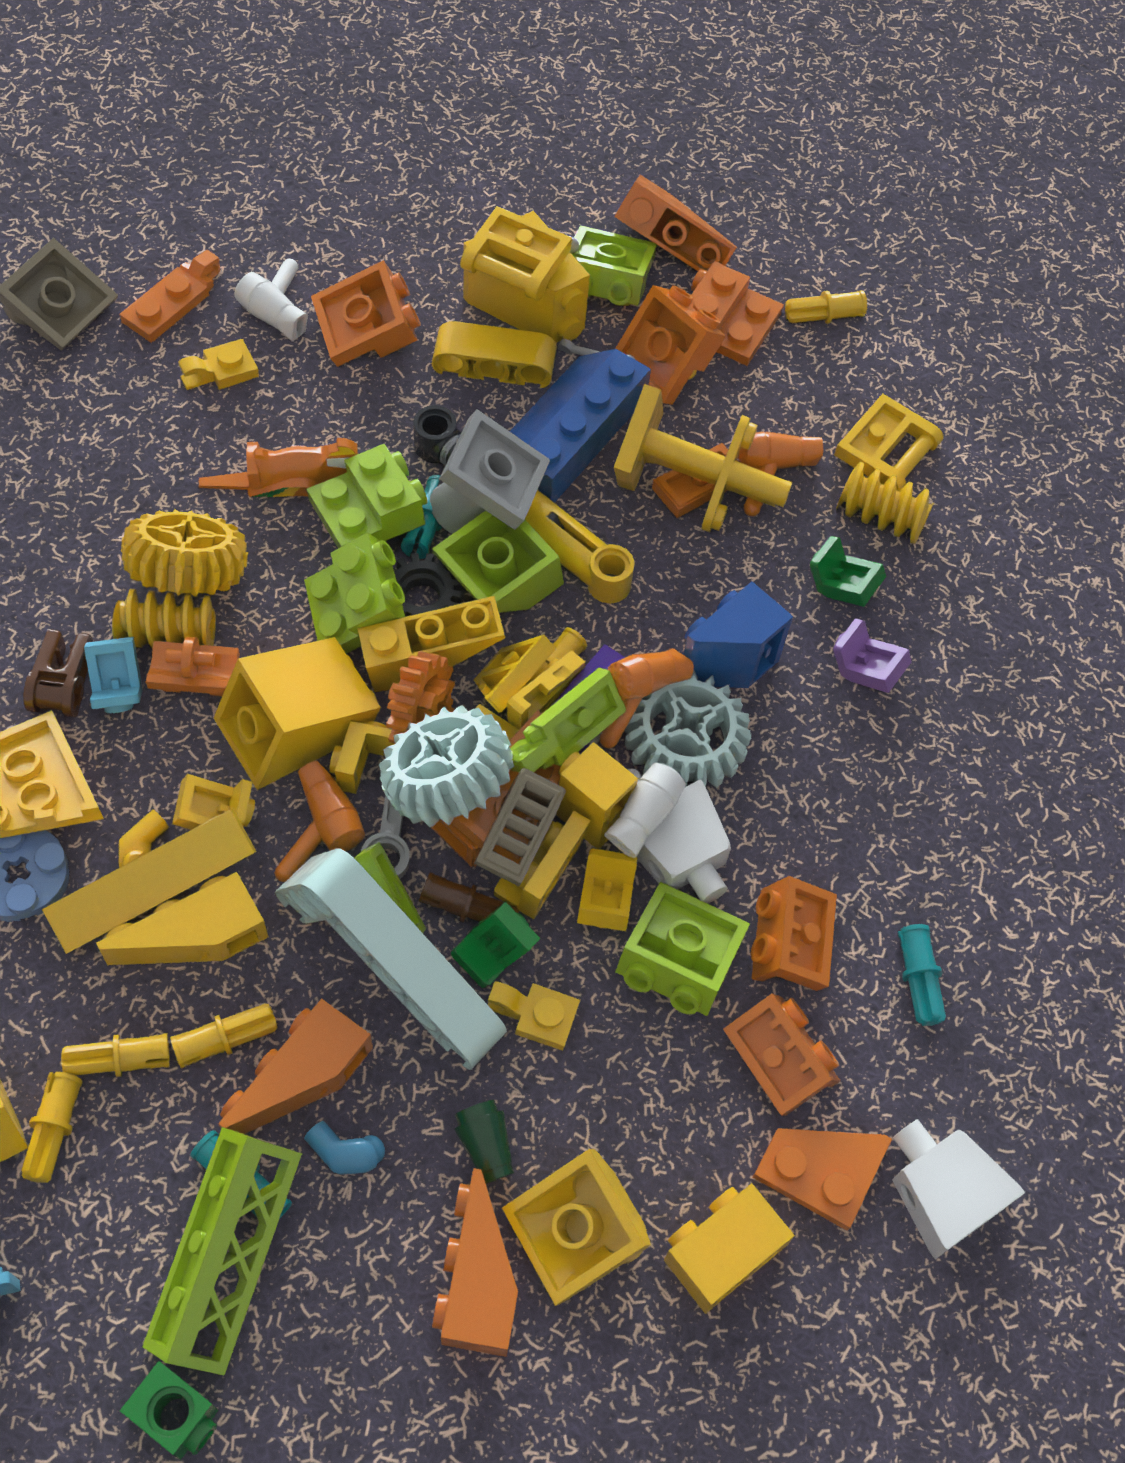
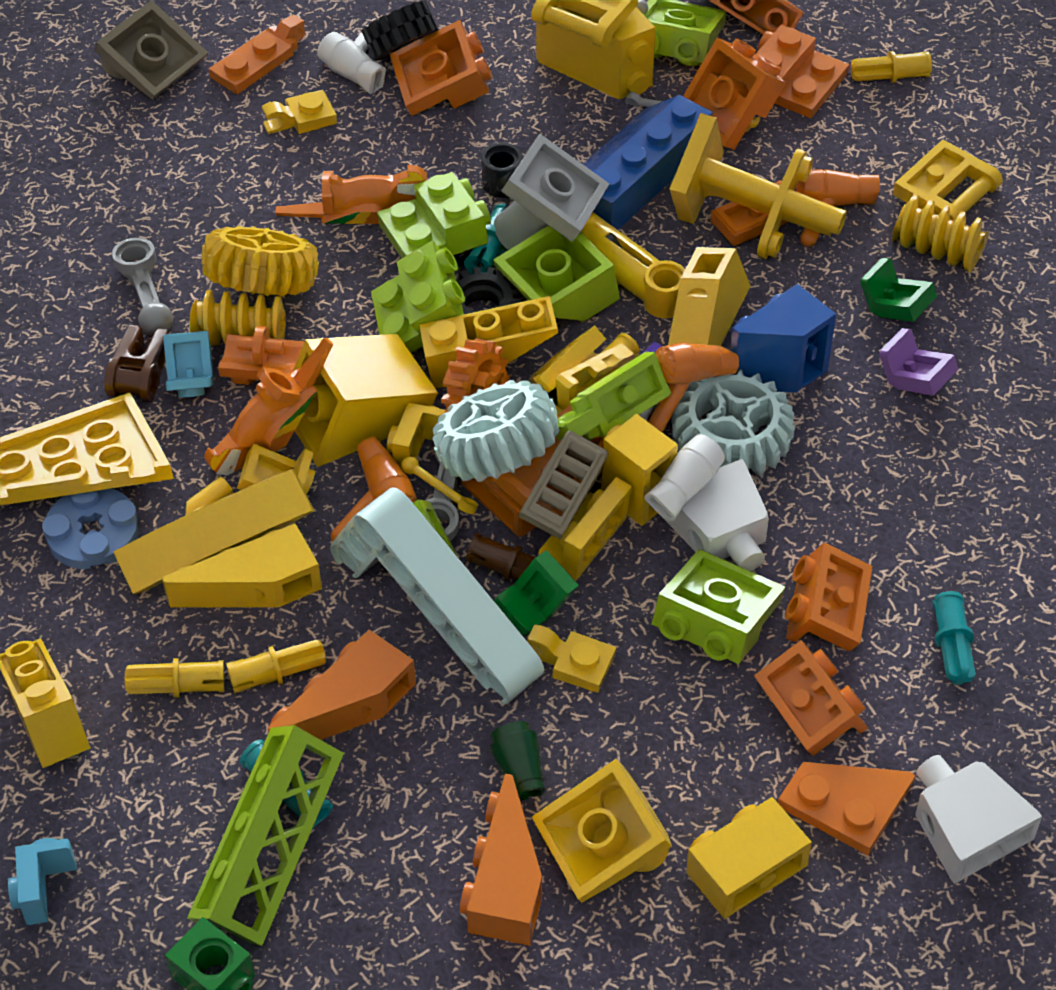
camera: 10 degrees right, 10 degrees down
(50, 1126) = (112, 732): yellow axle -> none
(74, 614) = (153, 313): none -> light grey piece
(204, 739) = (271, 414): none -> orange animal
(320, 271) = (399, 29): none -> black tyre
(347, 1155) = (387, 768): dark azure arm -> none
(416, 837) = (411, 466): none -> yellow hinge
(494, 353) = (563, 102): yellow beam -> none
(607, 890) = (647, 553): yellow bracket -> none
(654, 592) = (709, 296): none -> yellow slope

